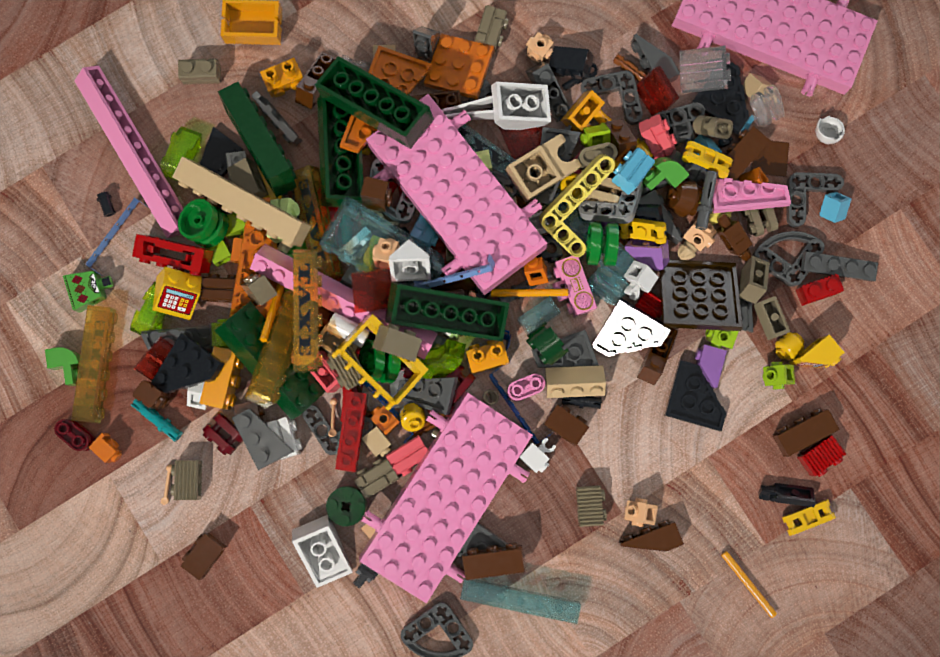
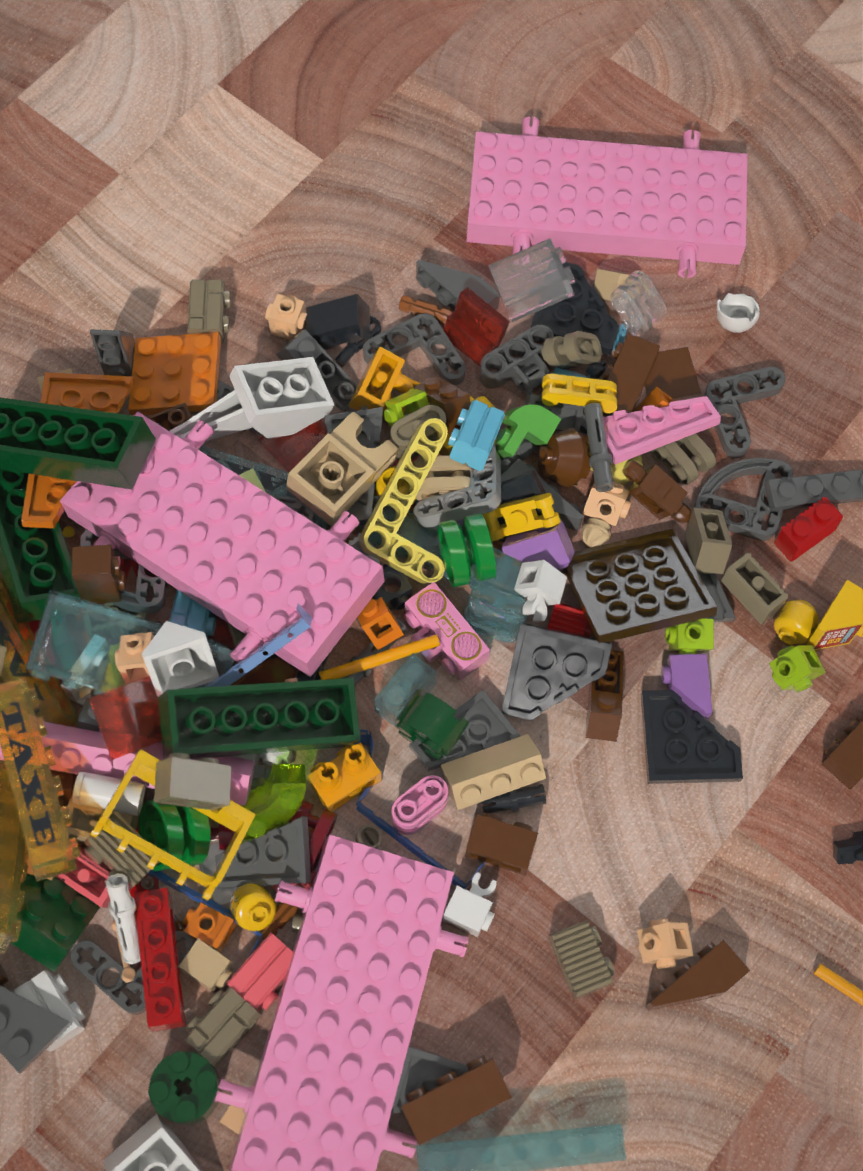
camera: 20 degrees left, 15 degrees down
(338, 400) = (122, 909): none -> white pin
(657, 136) = (496, 384): coral brick -> none
(835, 207) = (785, 411): medium azure panel -> none

